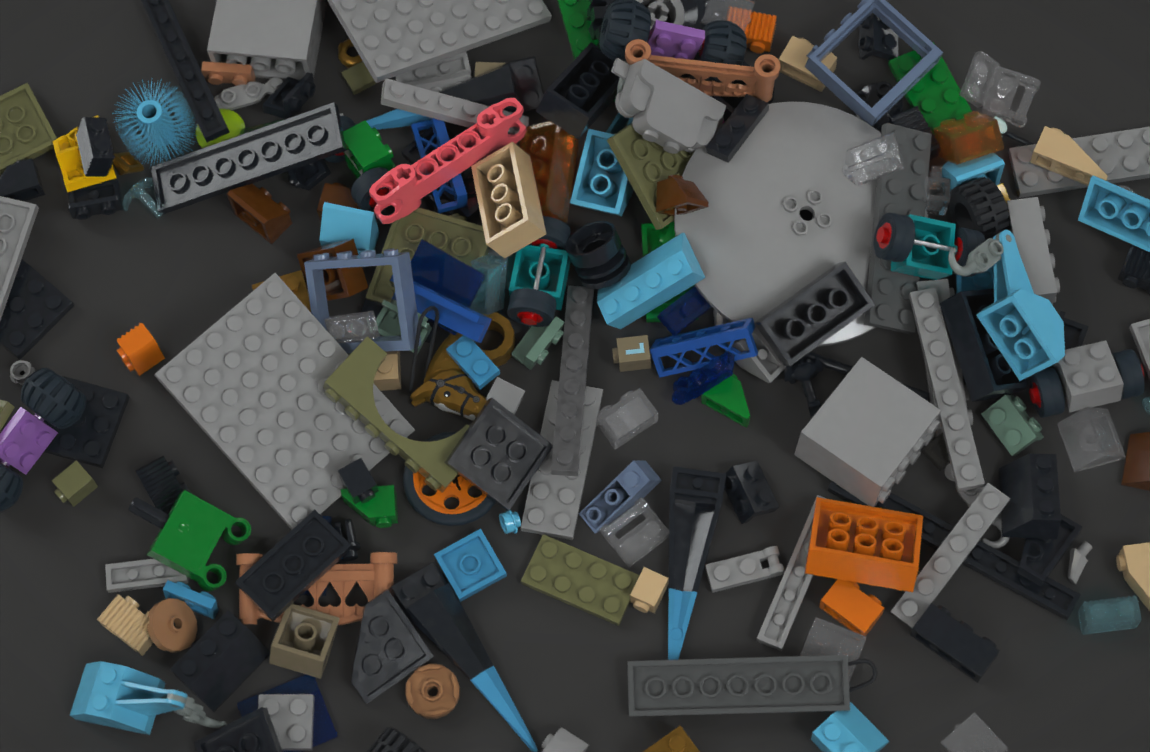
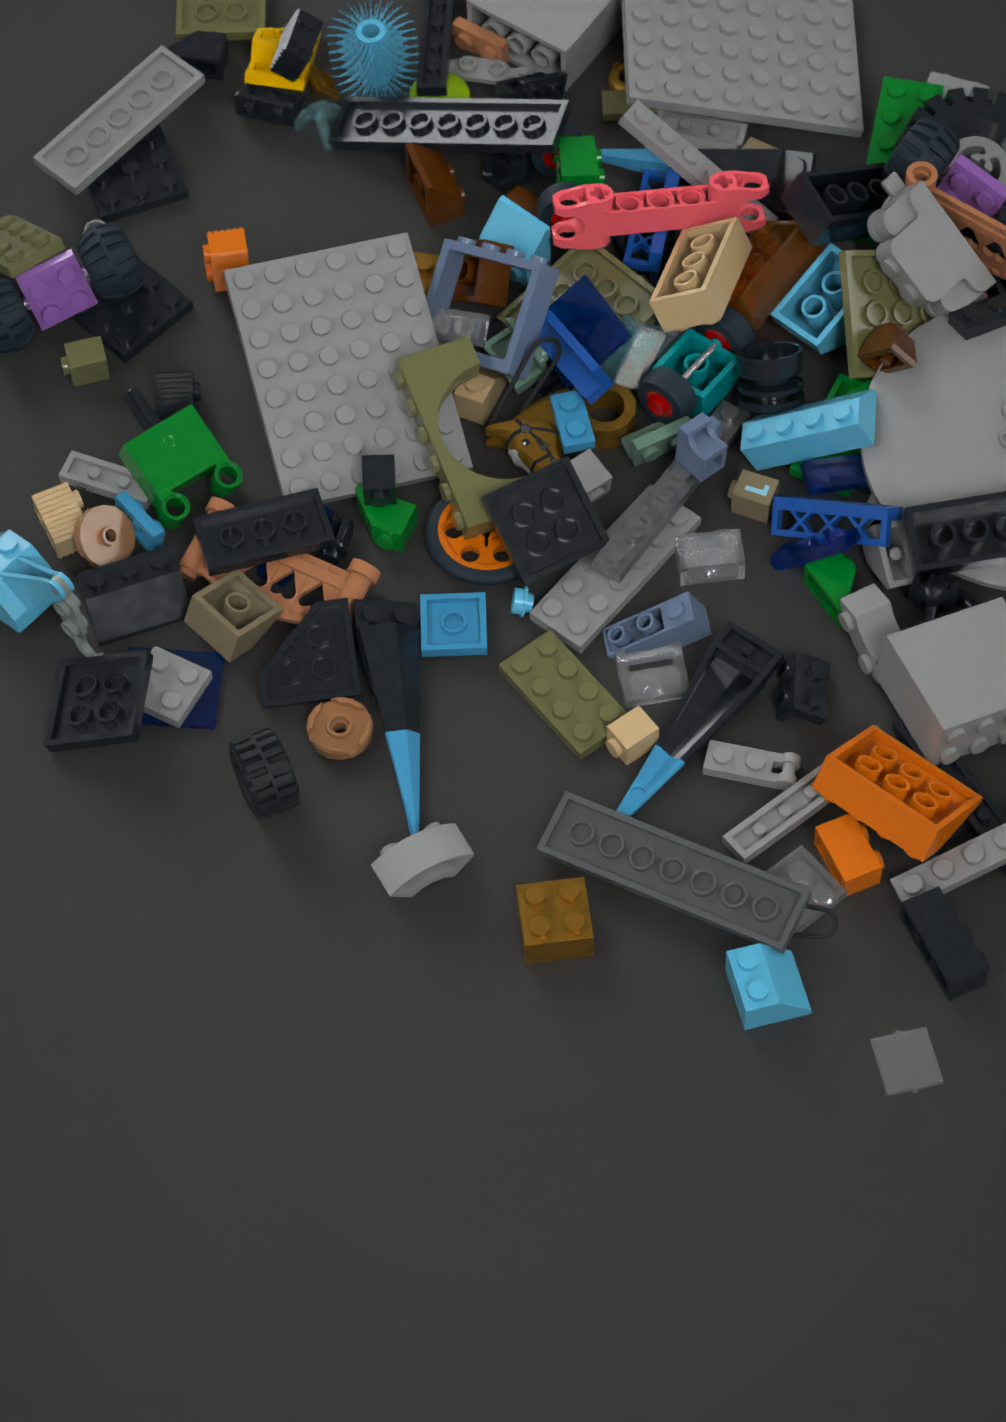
camera: 25 degrees right, 10 degrees down
(580, 339) = (700, 447): none -> sand blue brick
(776, 421) = (868, 620): none -> light grey brick

